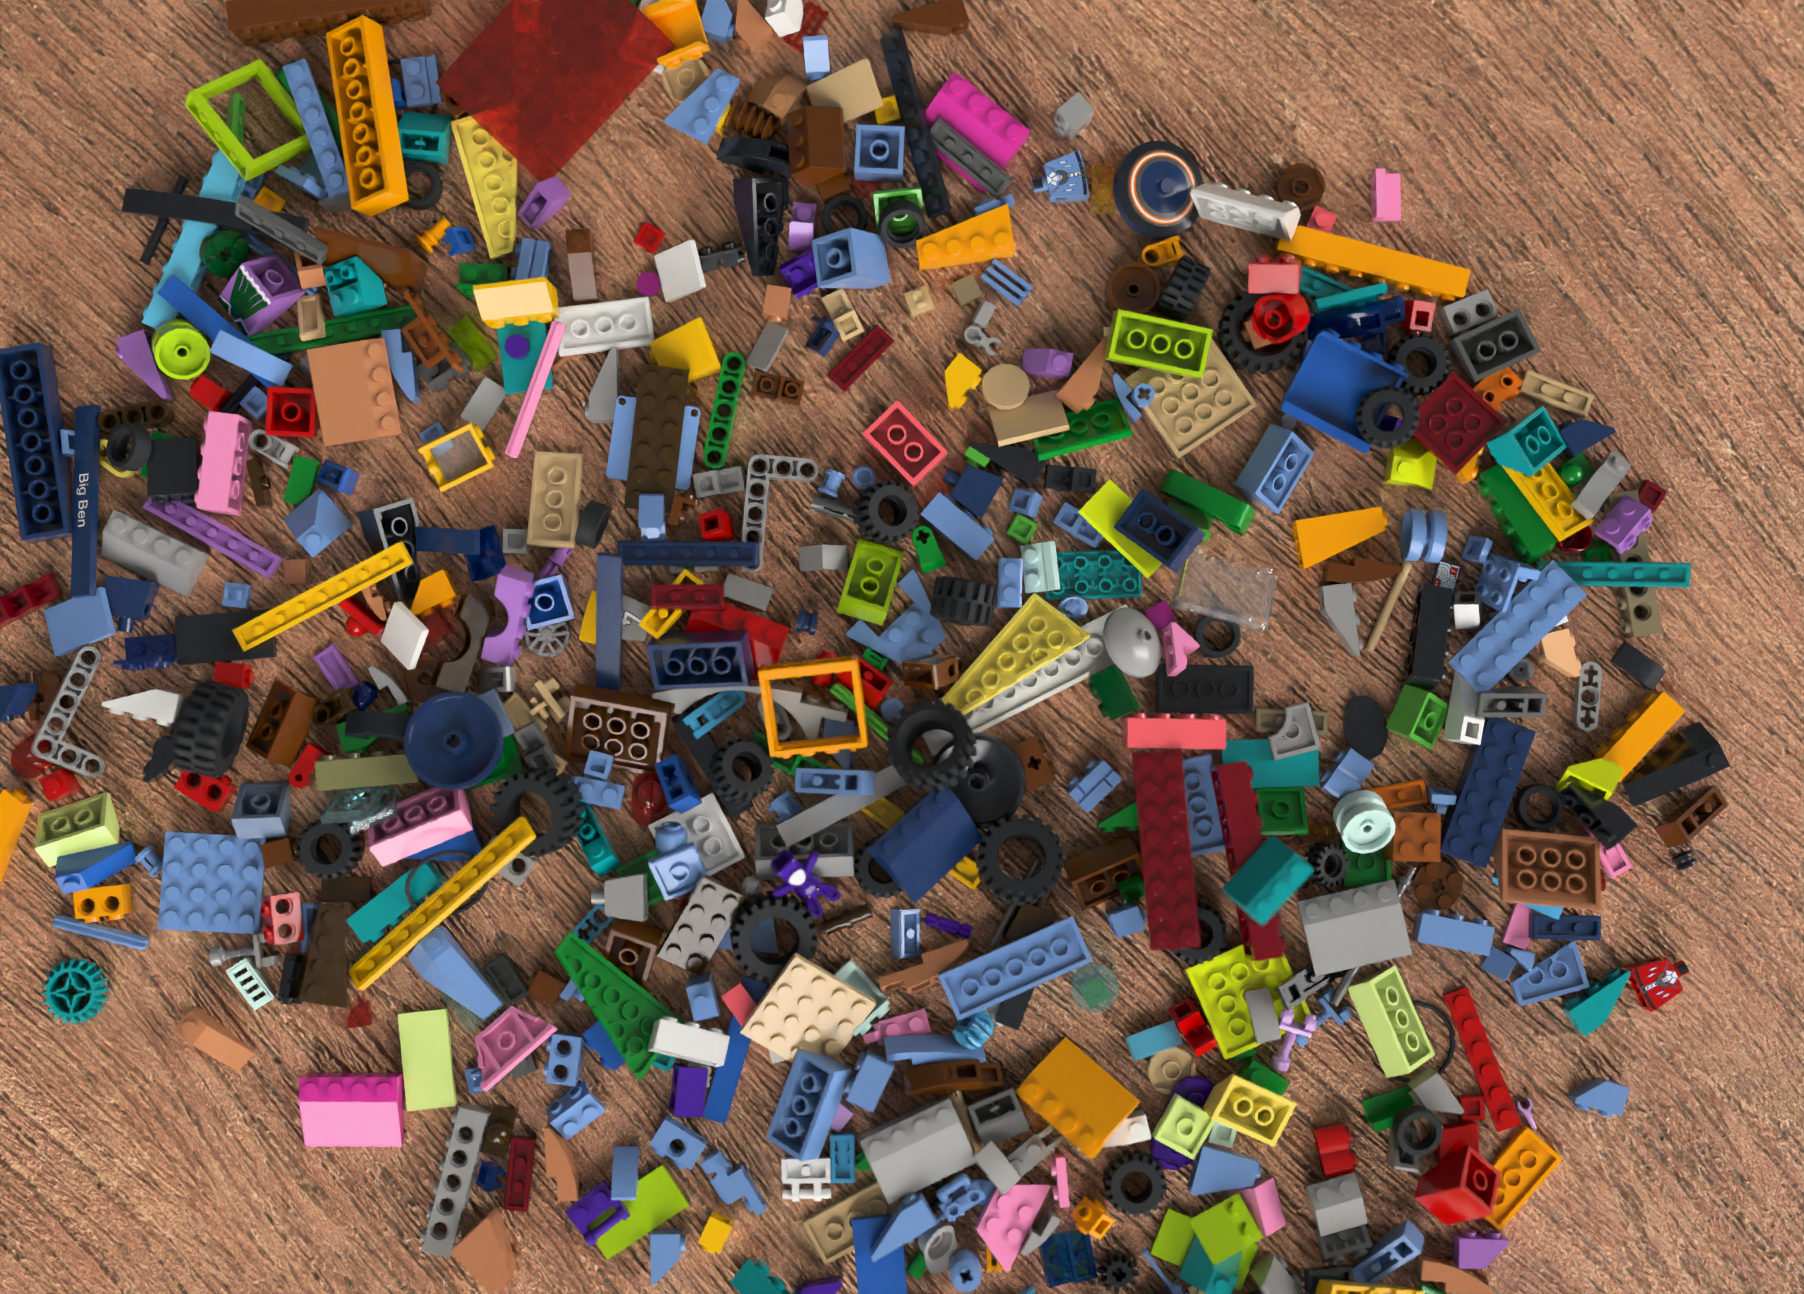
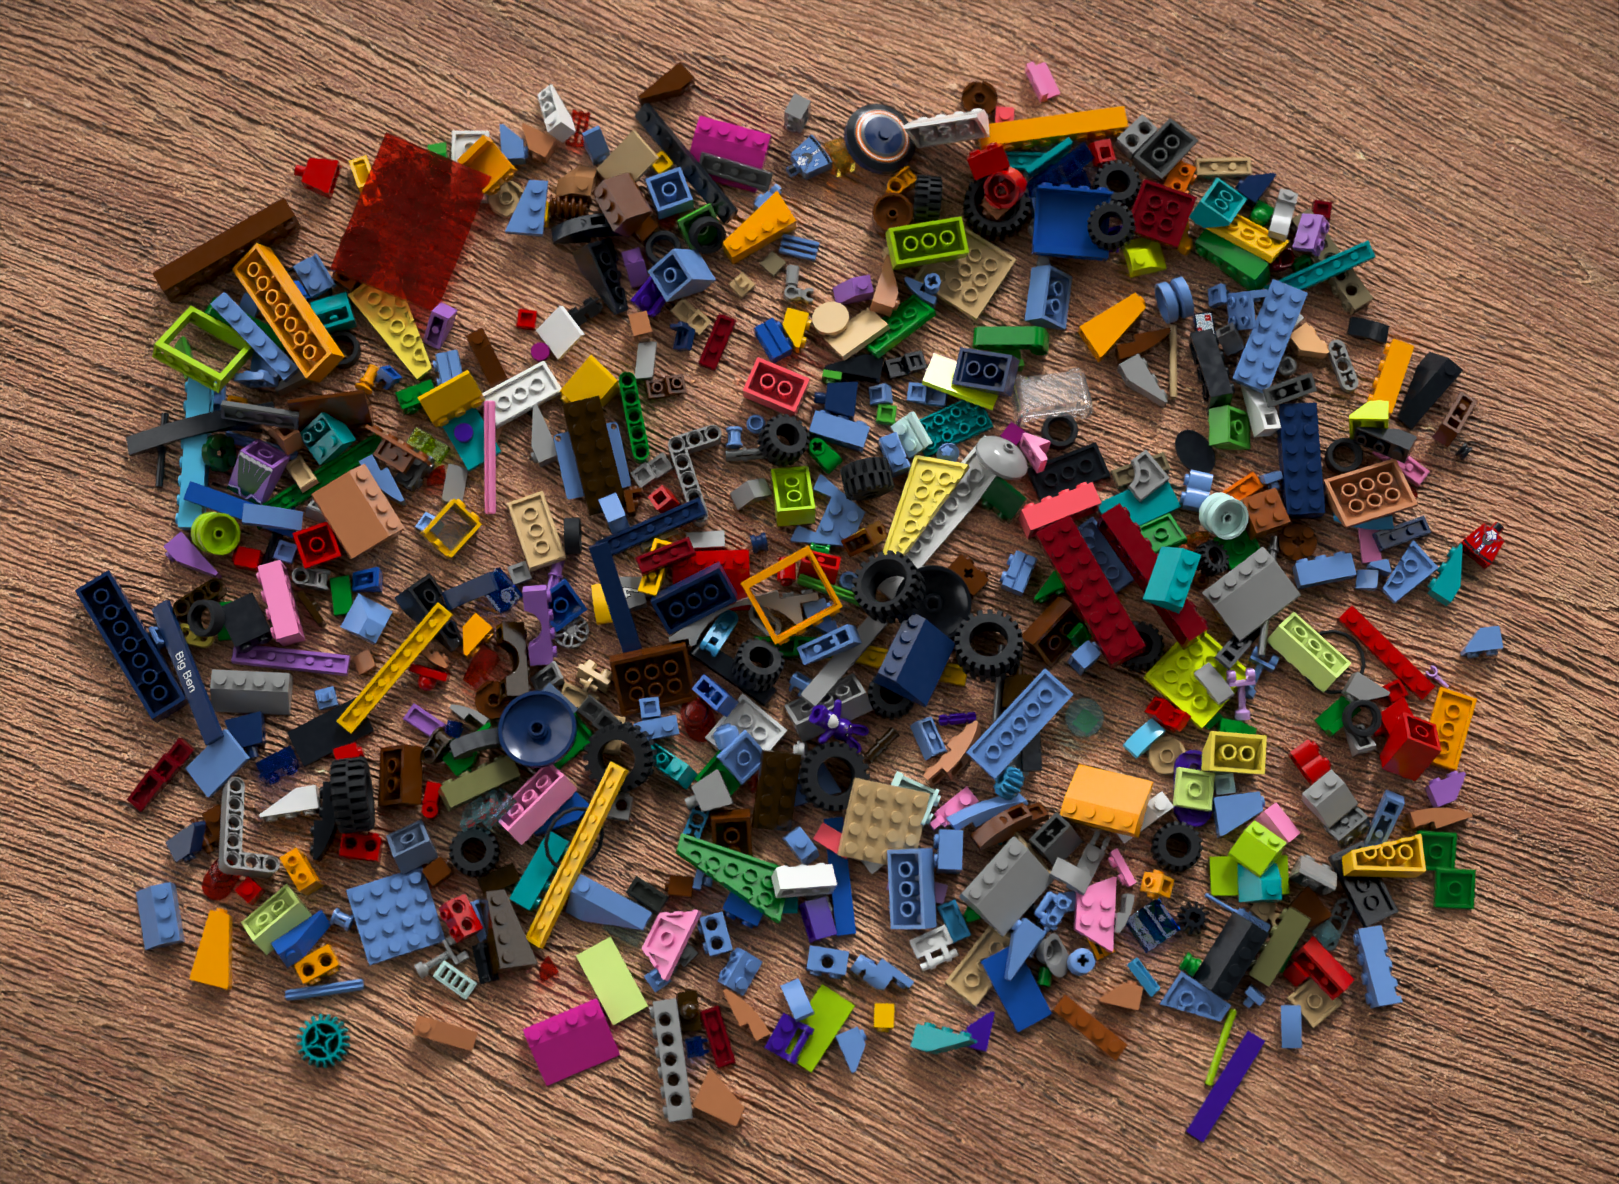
camera: 25 degrees left, 10 degrees down
(116, 781) = (303, 873): none -> light orange window
(326, 88) = (248, 305): none -> medium blue slope
(404, 635) = (466, 672): white tile -> none
(467, 384) = (437, 476): none -> clear red tile
(926, 384) = (773, 341): none -> blue brick

